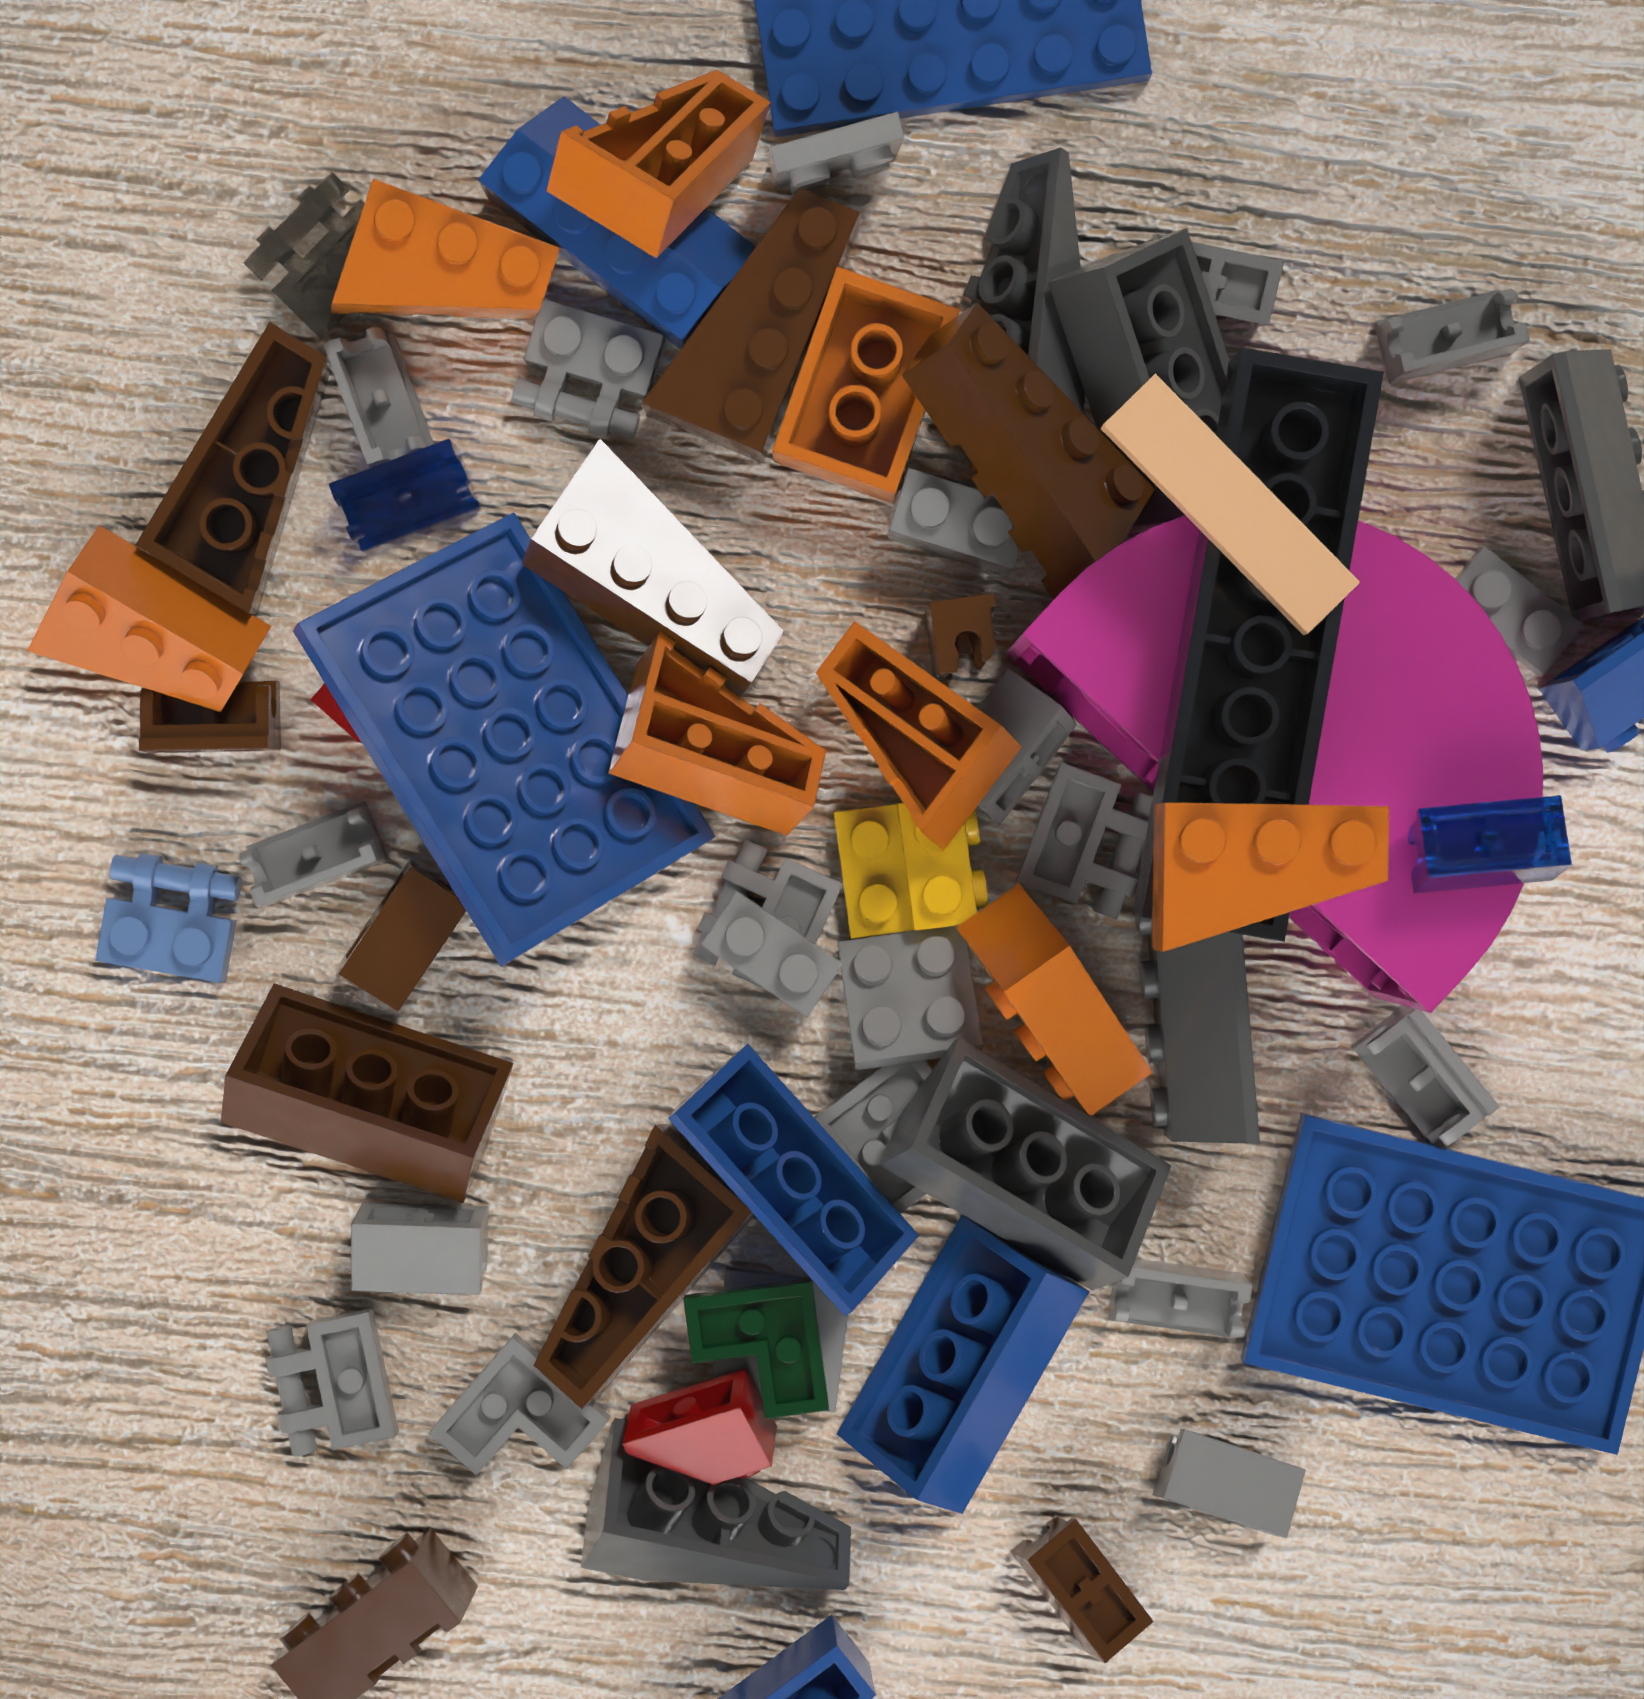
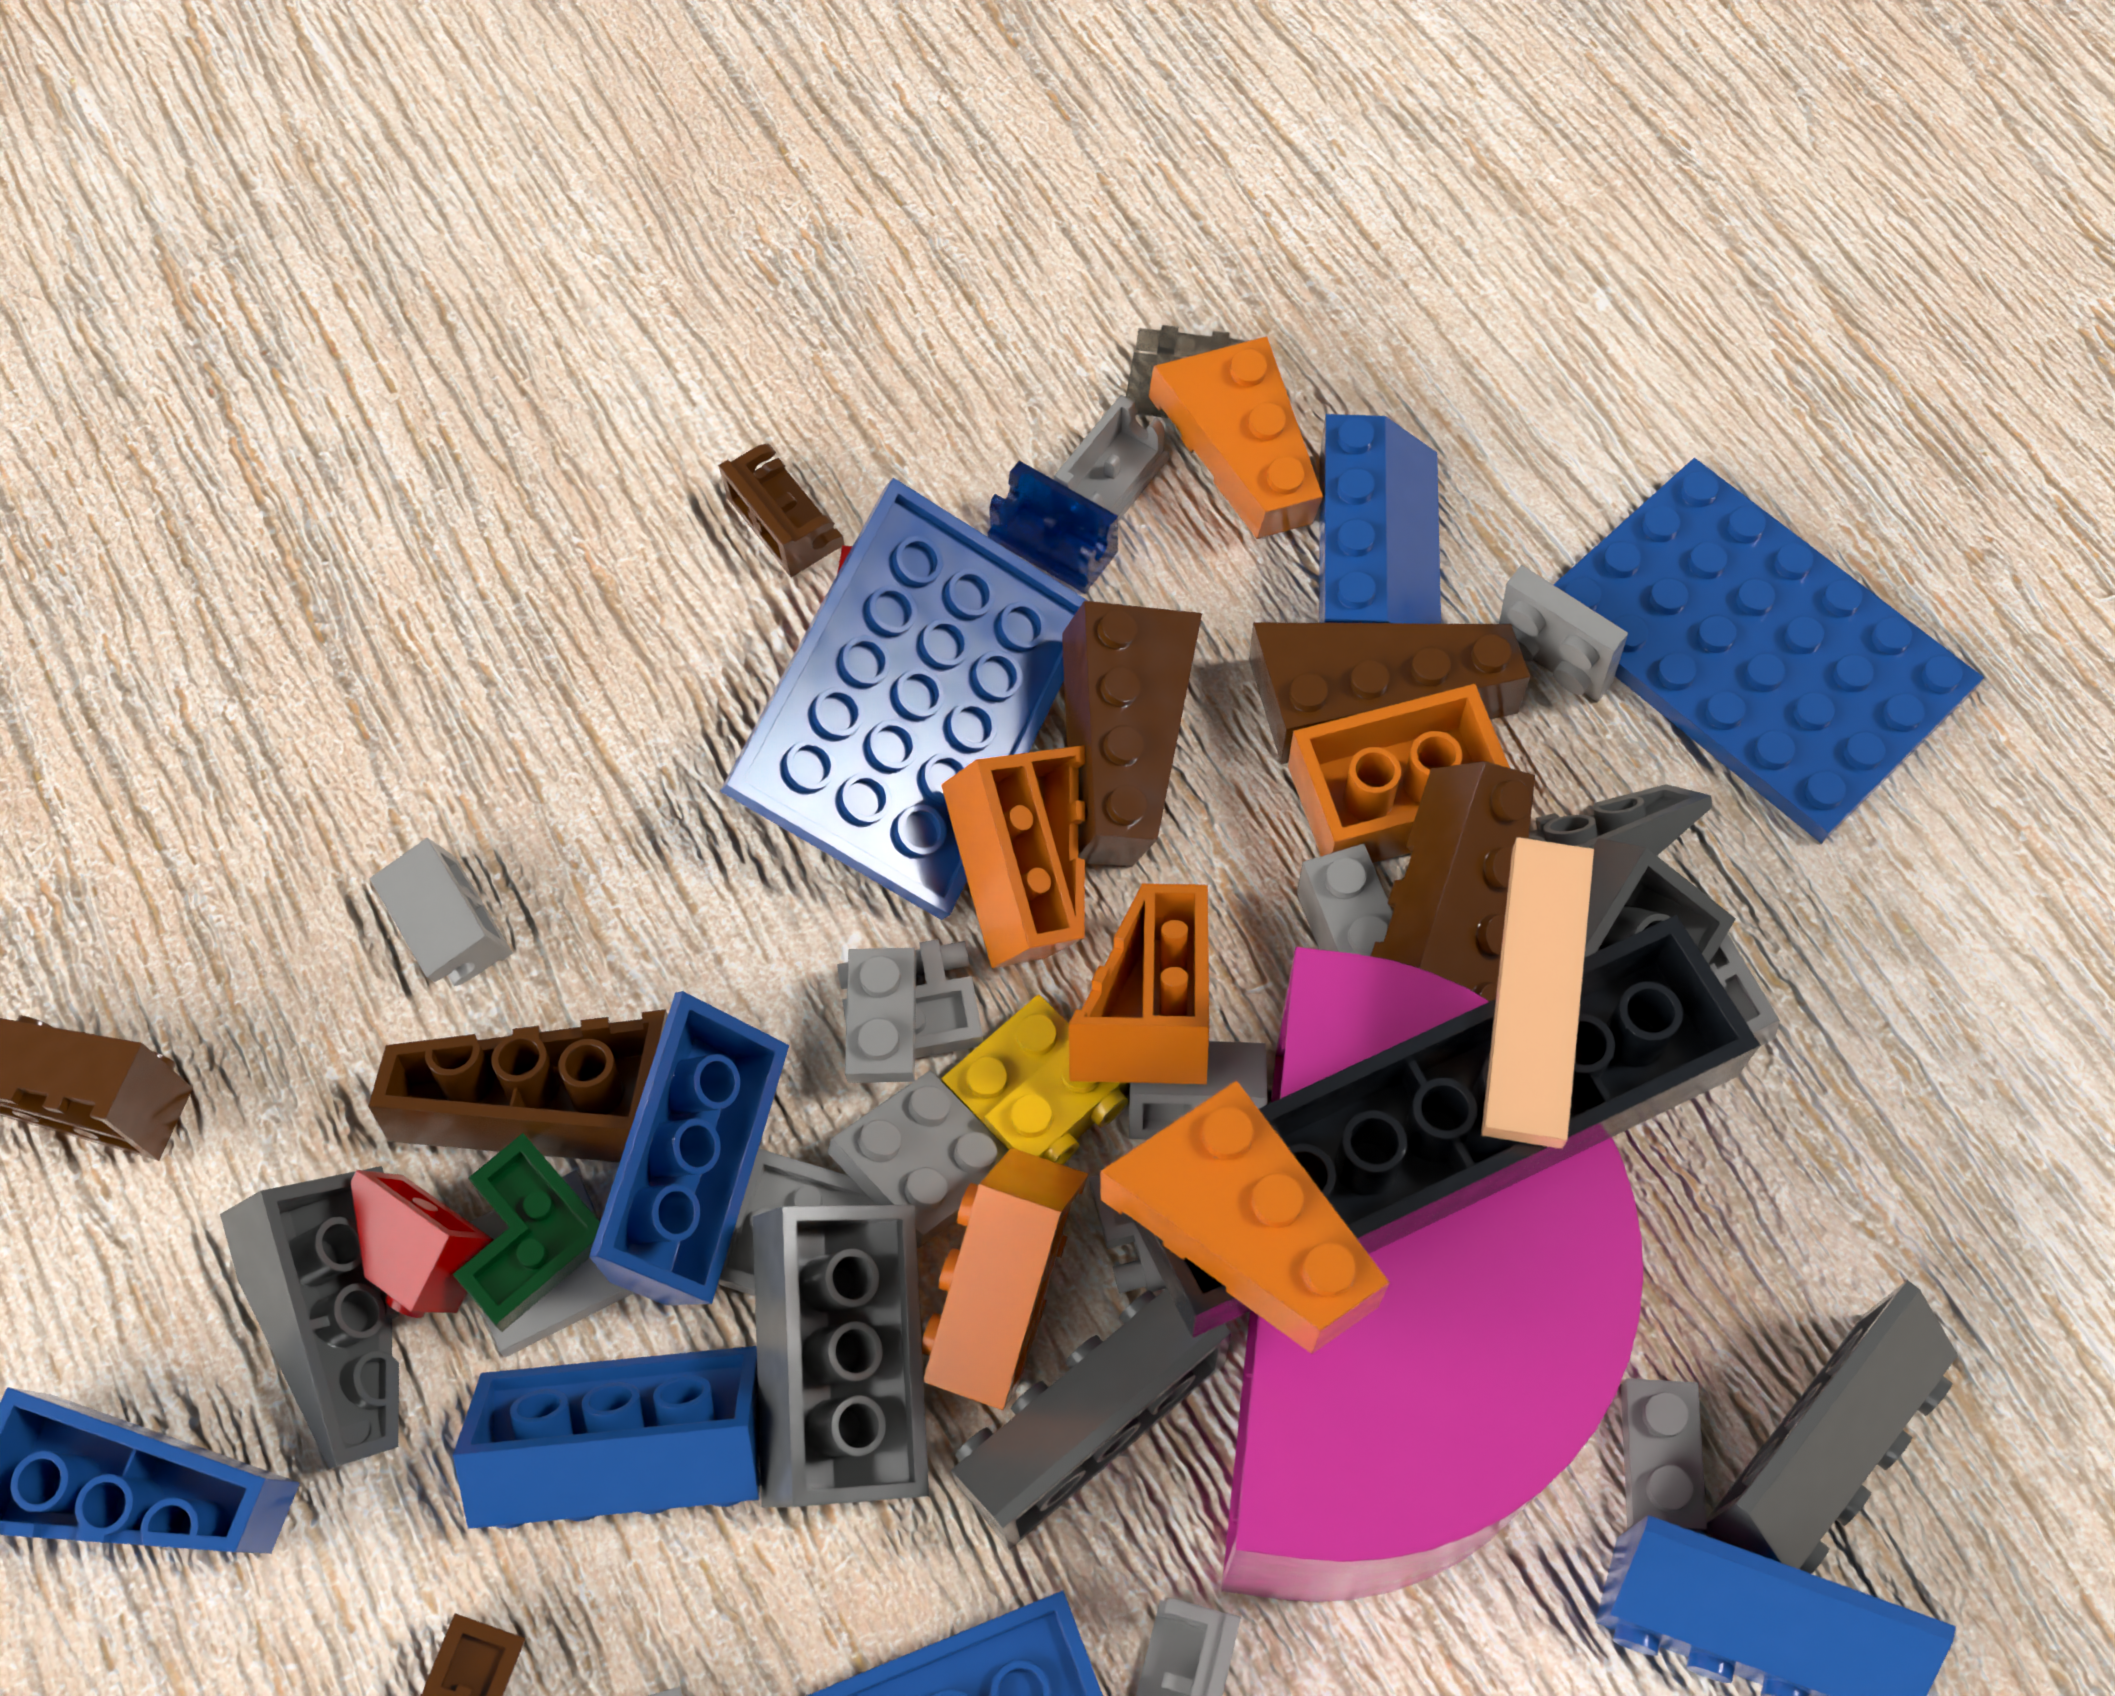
camera: 55 degrees right, 25 degrees down
(147, 625) = (820, 414): orange wedge -> none
(164, 937) = (584, 588): medium blue plate -> none
(240, 478) = (984, 409): reddish brown wedge -> none
(313, 854) = (720, 642): light grey hinge -> none
(349, 1377) = (289, 934): light grey plate -> none
(365, 1092) = (549, 794): reddish brown slope -> none
(402, 936) = (692, 732): reddish brown hinge -> none
(511, 1396) = (343, 1068): light grey plate -> none
(594, 351) = (1262, 579): light grey plate -> none
(661, 164) = (1443, 516): orange wedge -> none
(960, 621) = (1255, 971): reddish brown hinge -> none
(1181, 1298) = (806, 1598): light grey hinge -> none
(1450, 335) = (1842, 1223): light grey hinge -> none
(1489, 844) = (1431, 1471): clear blue hinge -> none

